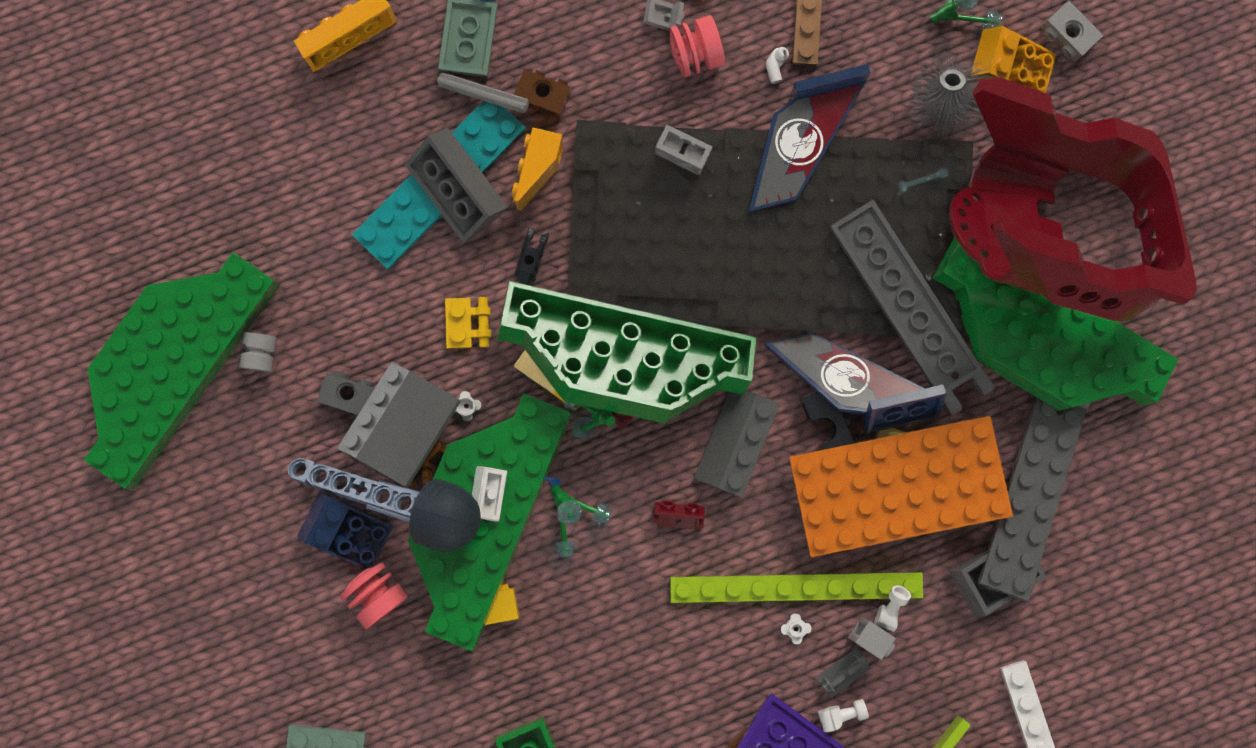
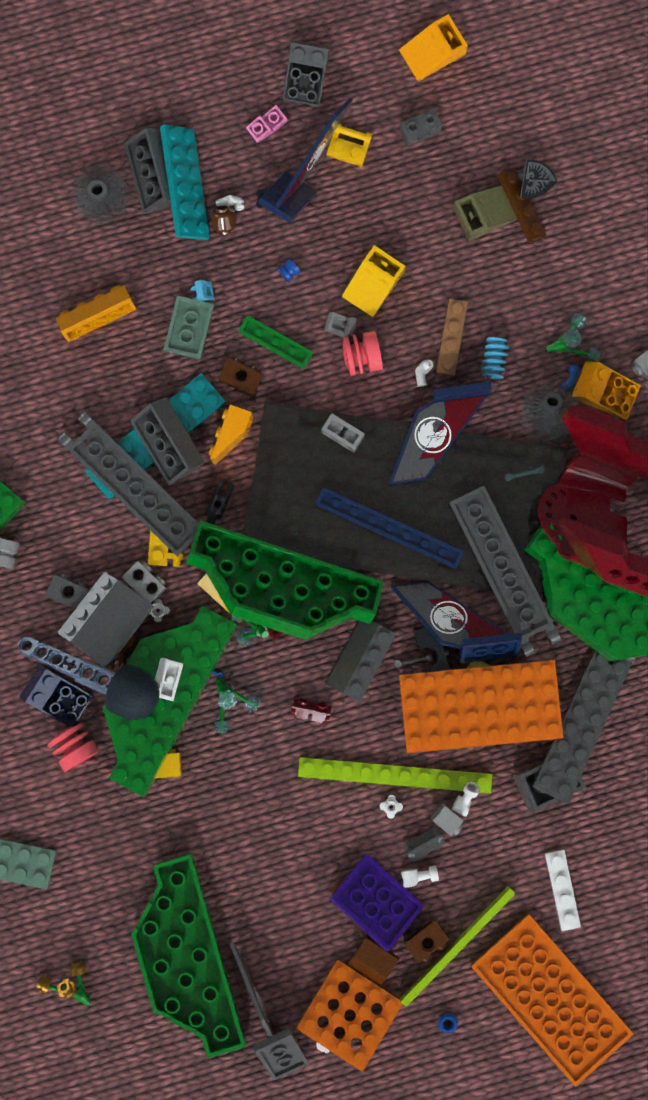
camera: 15 degrees right, 0 degrees up
(416, 247) = (132, 486): none -> dark grey hinge
(441, 376) = (141, 586): none -> light grey brick
(483, 92) = (195, 372): light grey axle -> none
(582, 44) = (275, 342): none -> green plate
(756, 267) = (389, 528): none -> dark blue plate
(784, 442) = (398, 663): none -> light grey hinge
(865, 36) = (493, 358): none -> medium azure piece
(970, 46) = (575, 372): none -> blue arm

